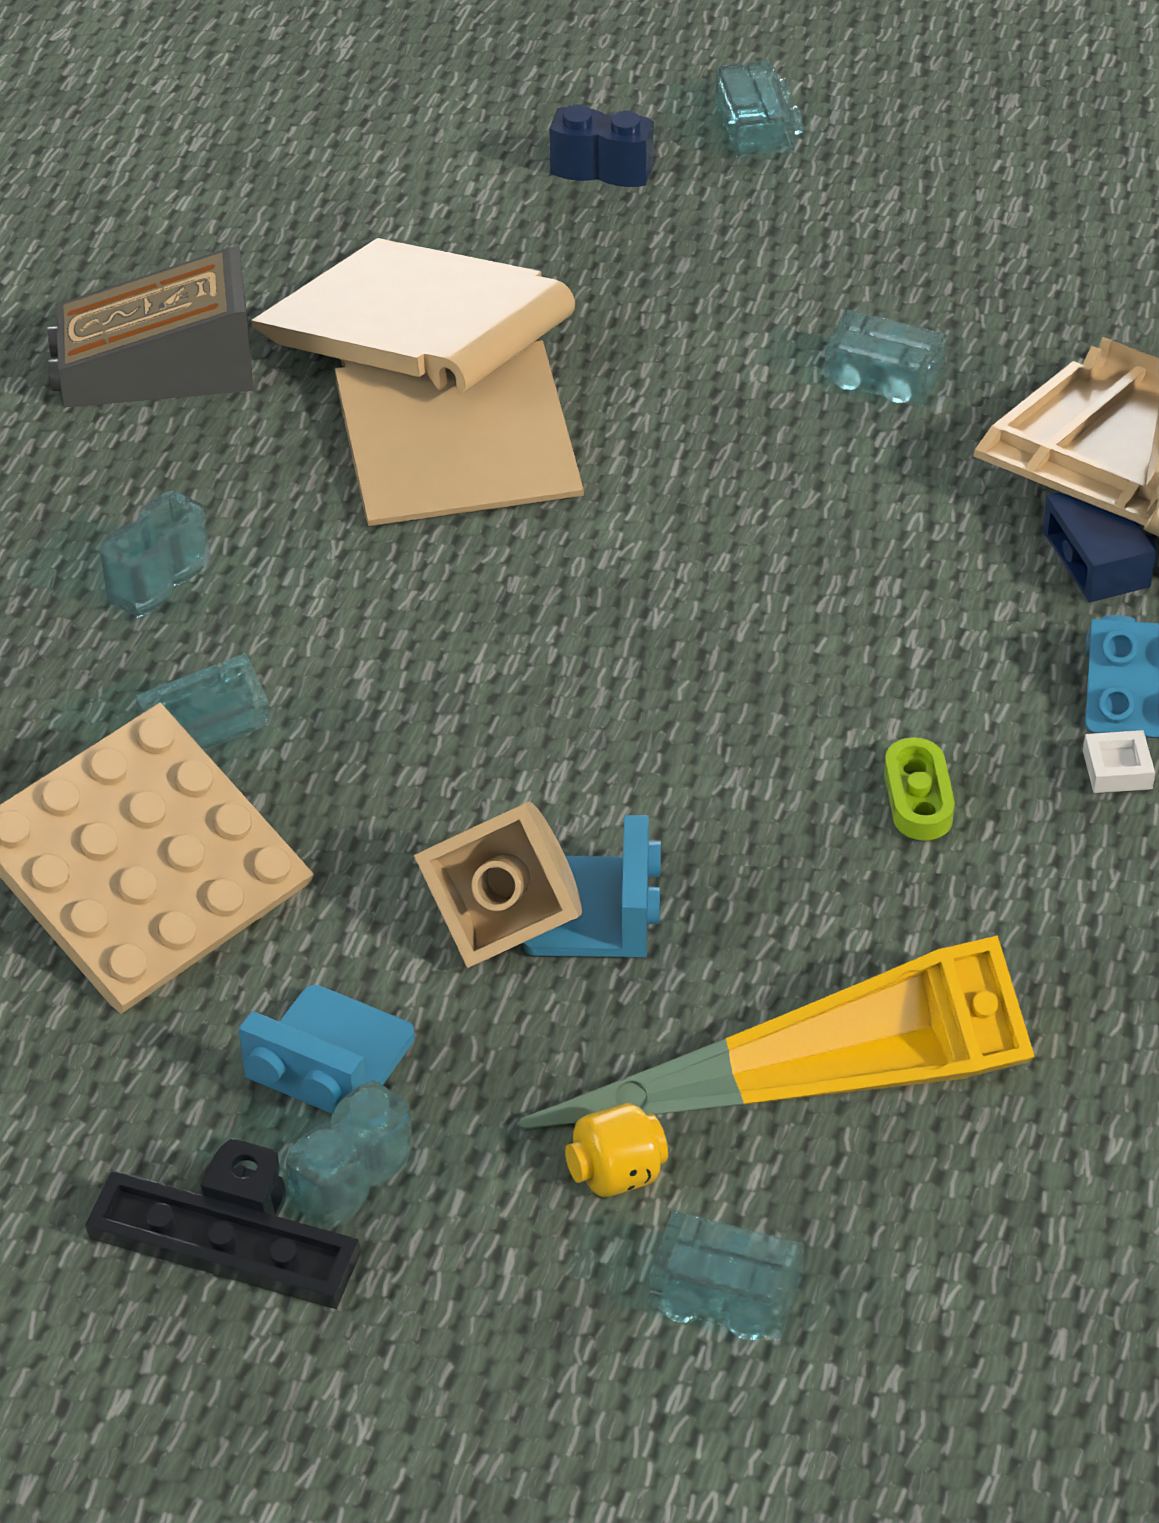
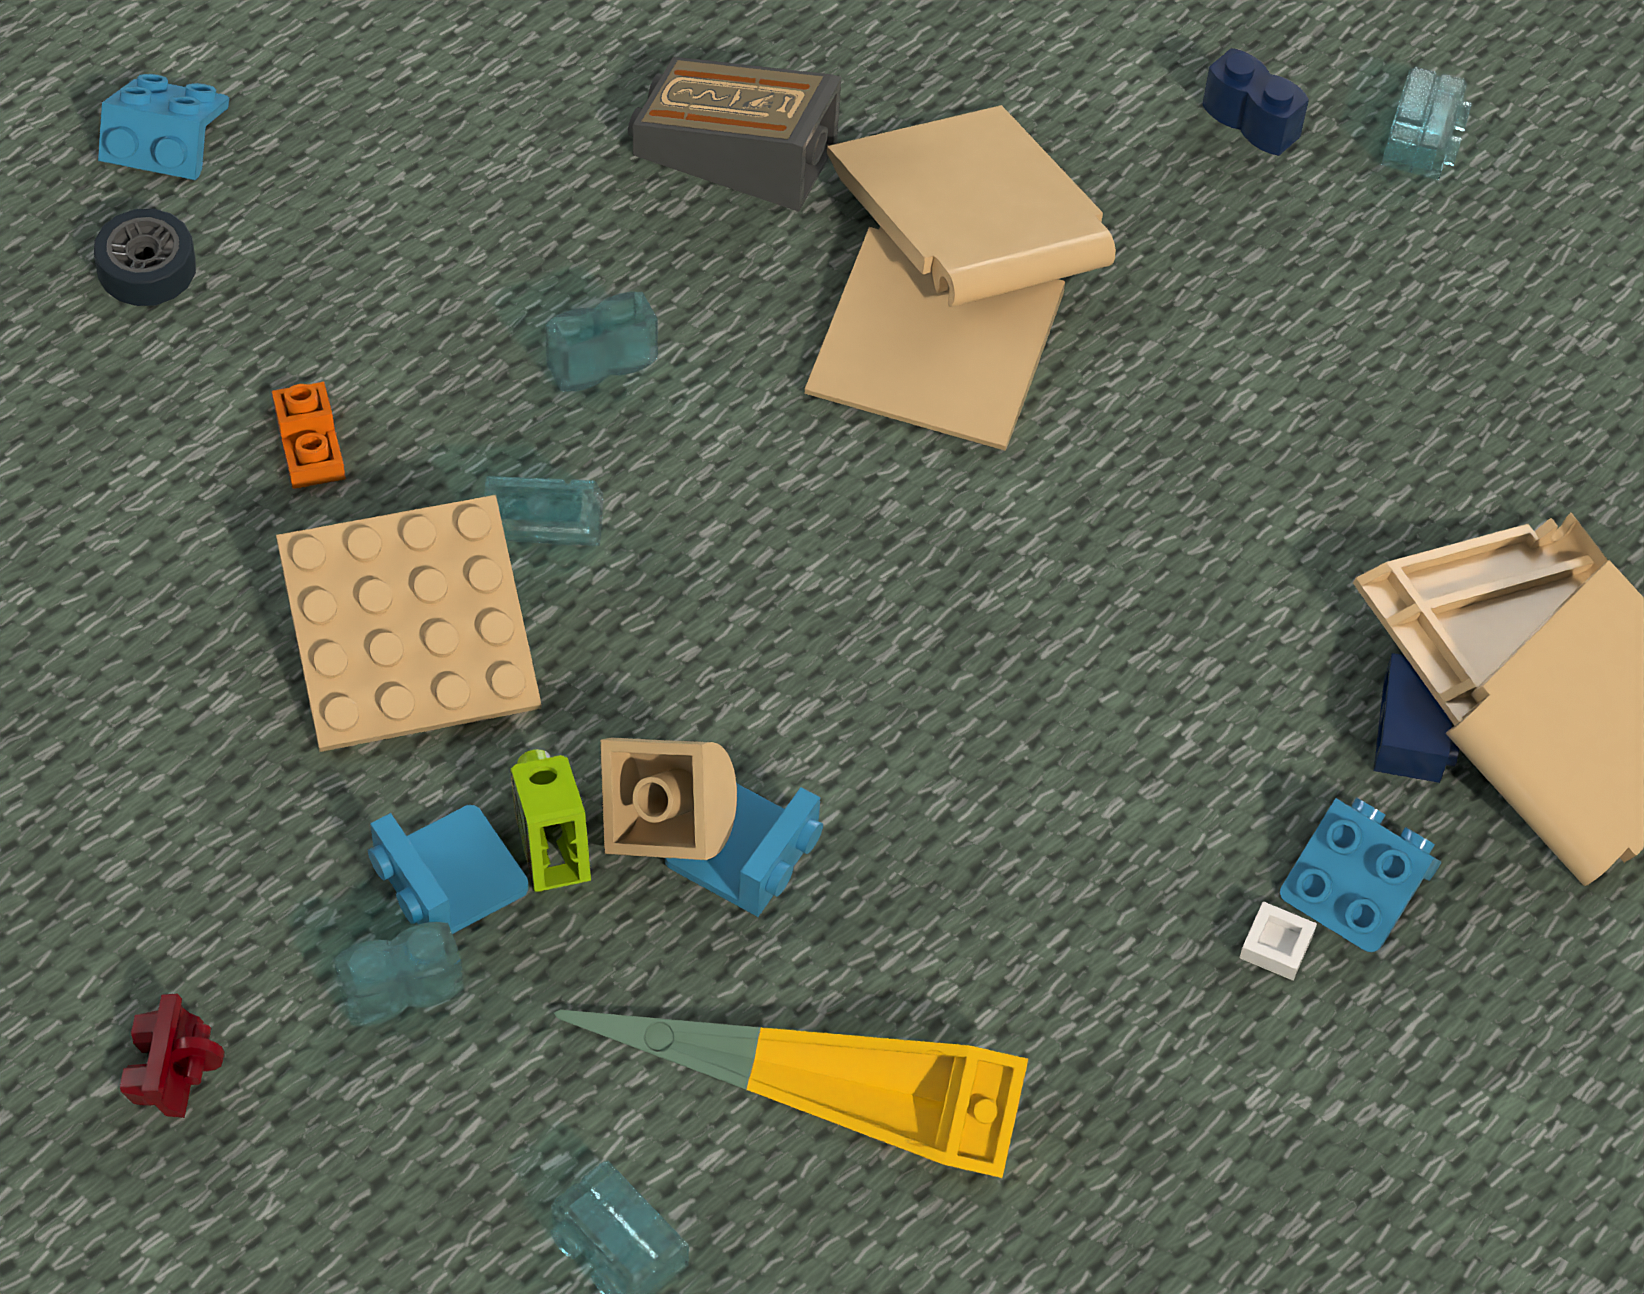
camera: 25 degrees right, 10 degrees up
(177, 1330) = (176, 1060): none -> dark red hips
(228, 1228) = (273, 985): black plate -> none
(402, 956) = (545, 797): none -> lime torso
(617, 1150) = (609, 1079): yellow head -> none
(884, 357) = (1357, 440): clear light blue brick -> none
(920, 792) = (1085, 881): lime plate -> none

